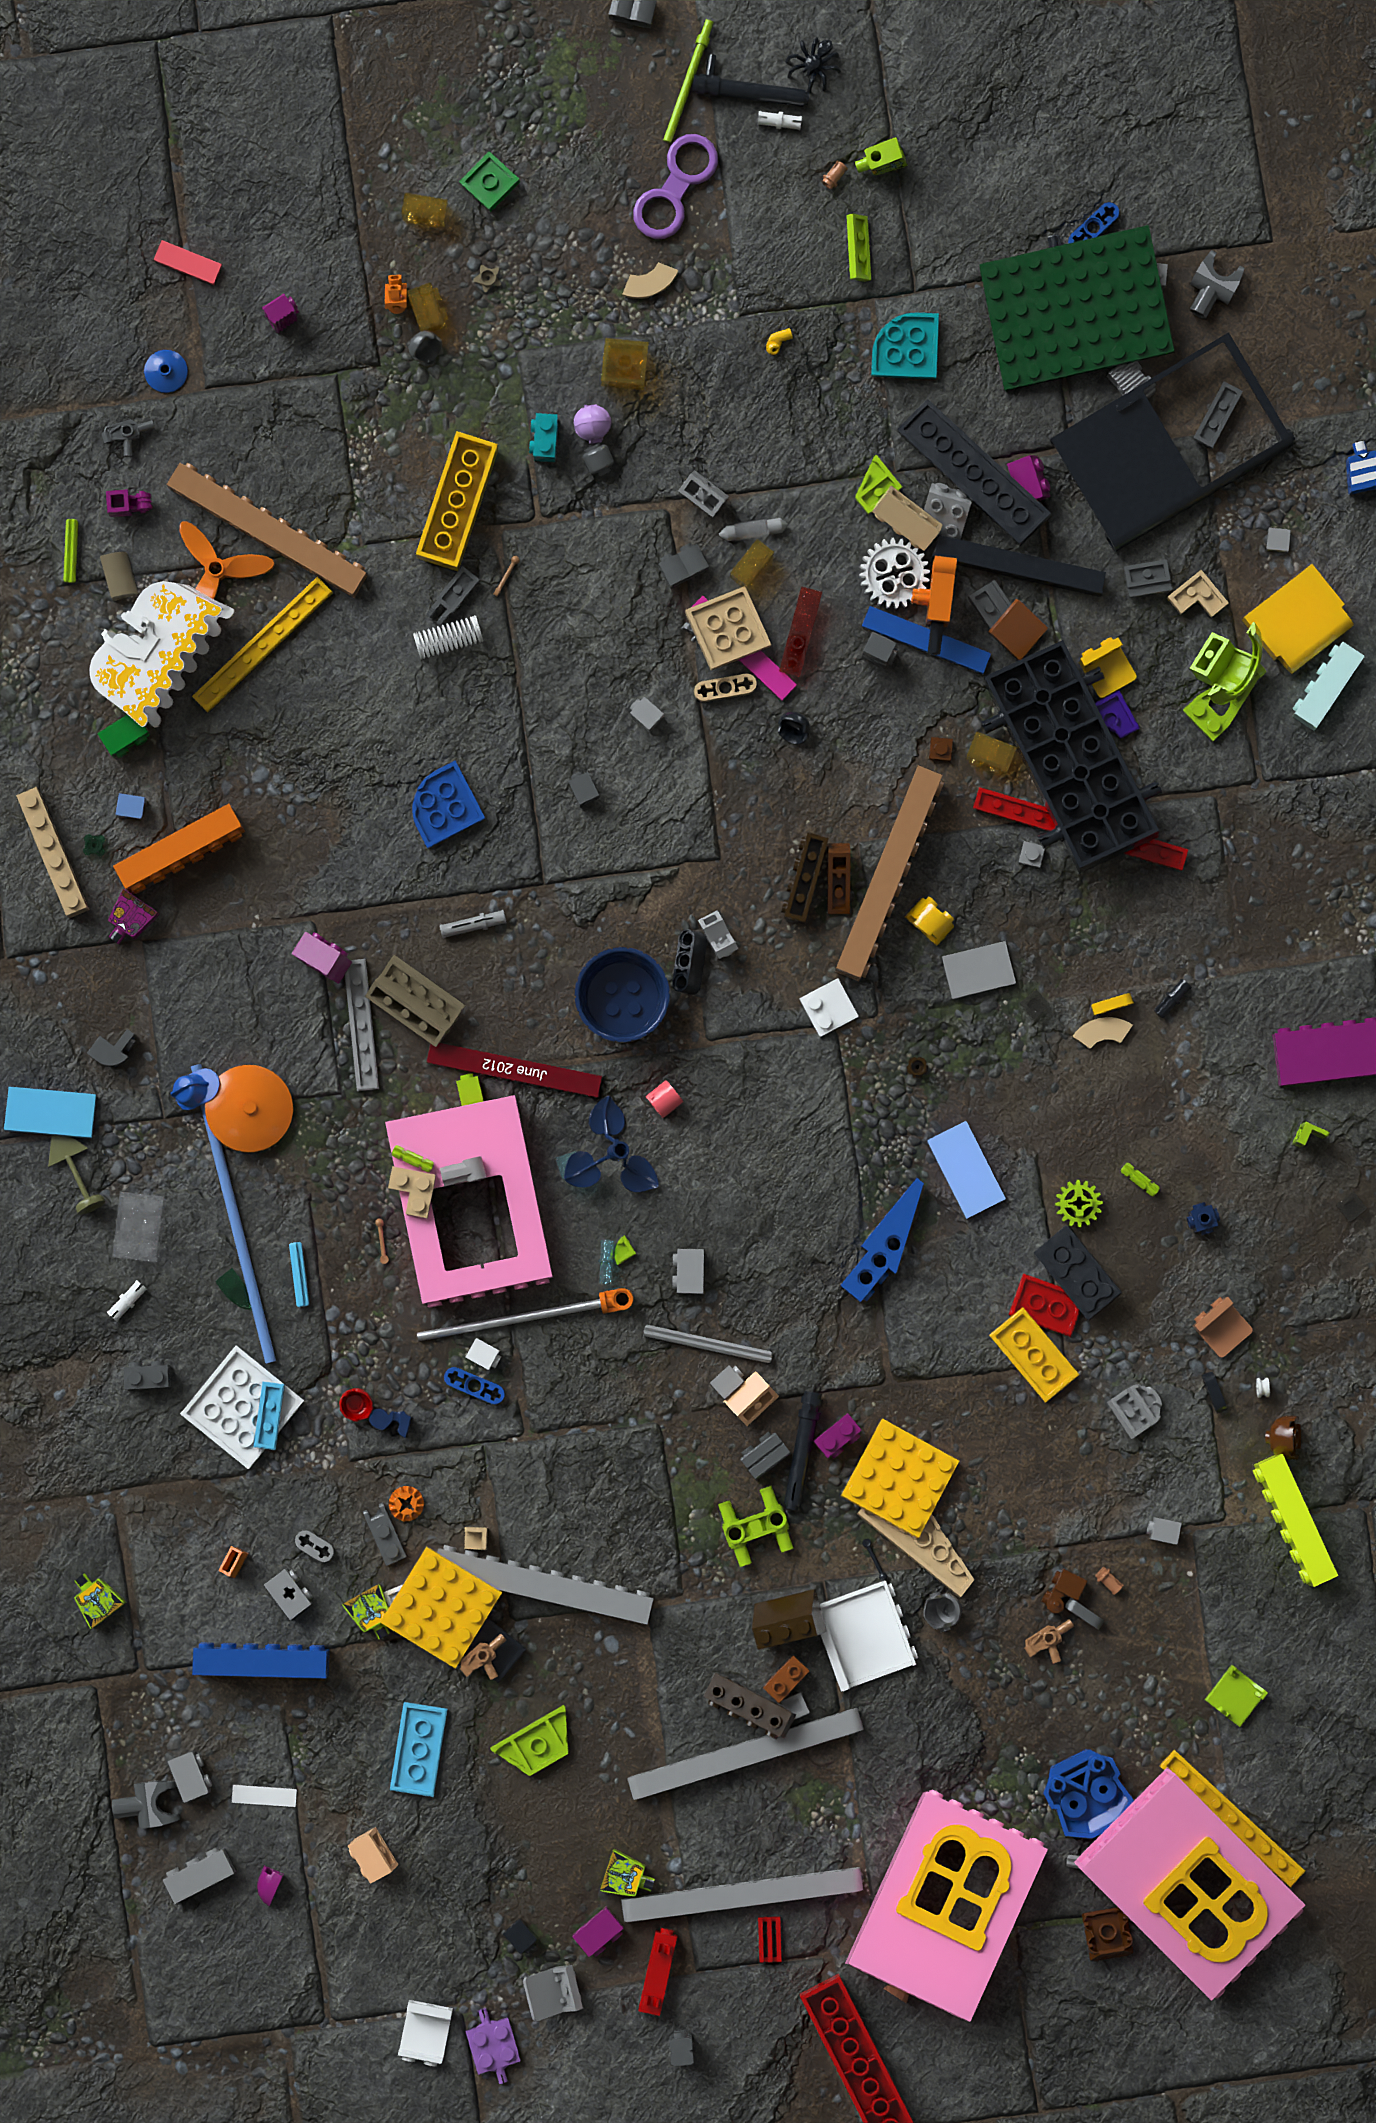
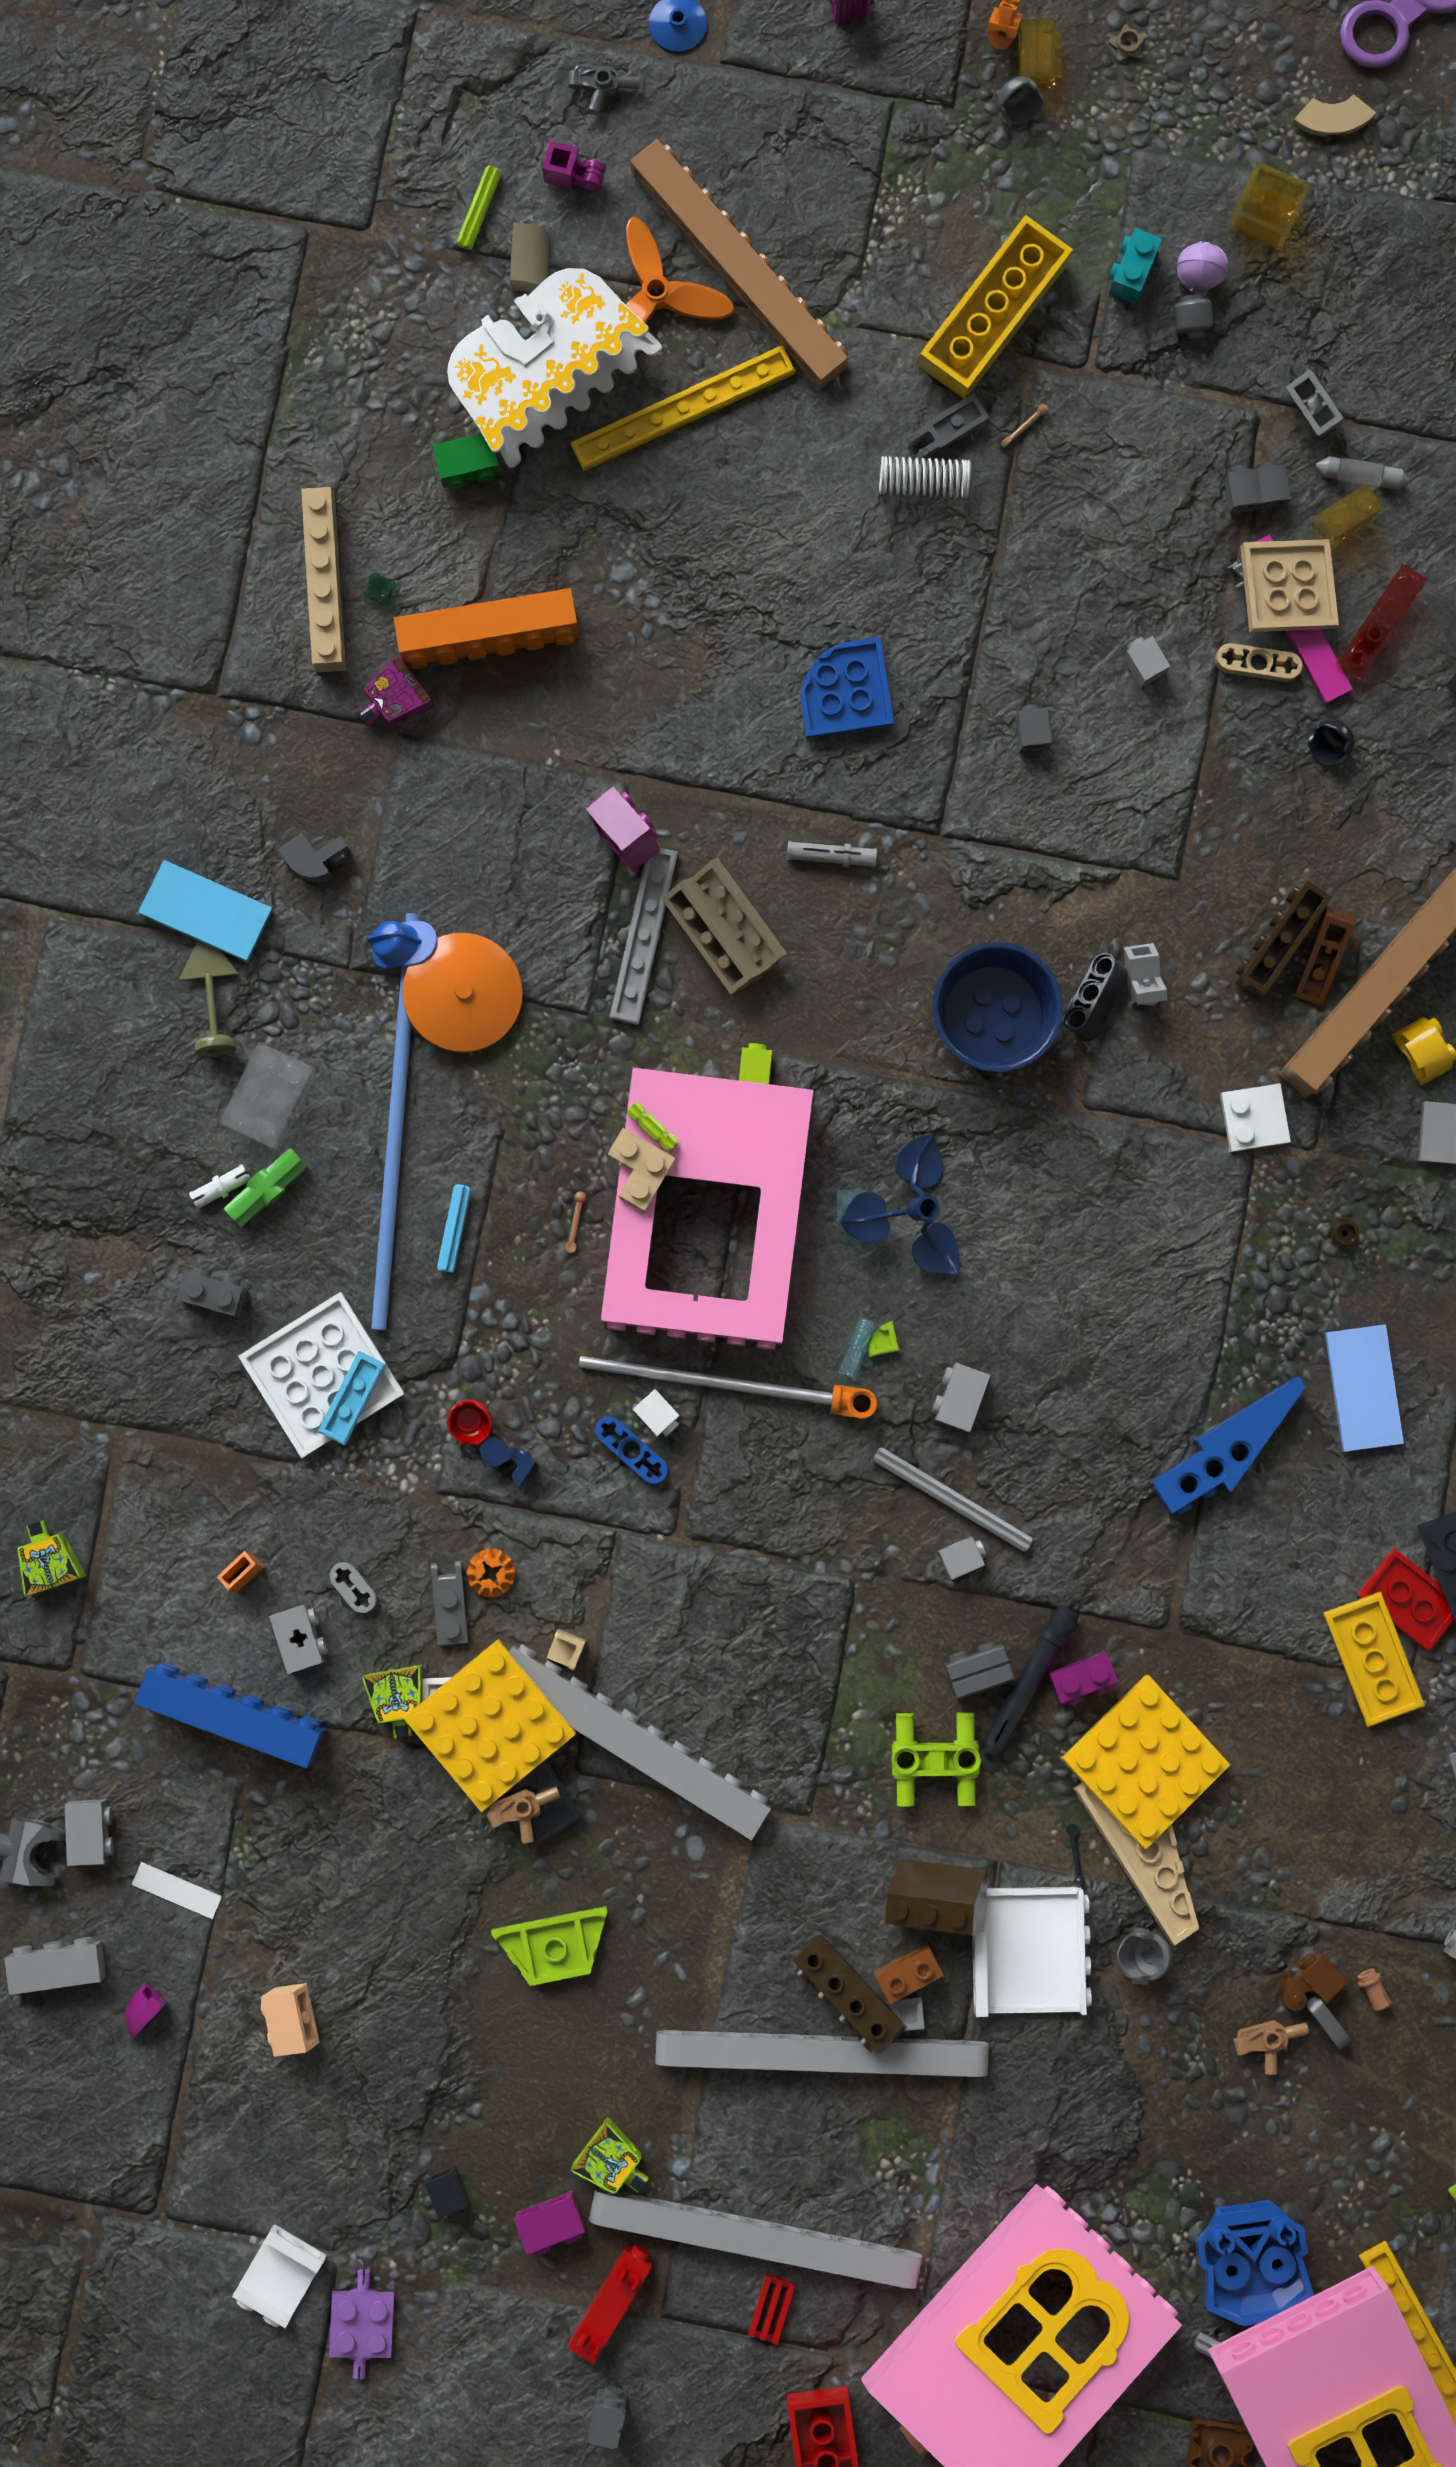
camera: 15 degrees right, 0 degrees up
(130, 806) = (442, 553): medium blue panel -> none
(159, 1290) = (265, 1187): none -> bright green piece
(234, 1289) = (364, 1218): clear green plate -> none
(418, 1749) = (397, 1899): medium azure tile -> none
(469, 1170) = (721, 1167): light grey piece -> none
(514, 1069) = (822, 1059): dark red tile -> none
(552, 1992) = (463, 2283): light grey bracket -> none
(664, 1099) = (1003, 1162): coral piece -> none
(750, 1397) = (986, 1590): light nougat brick -> none

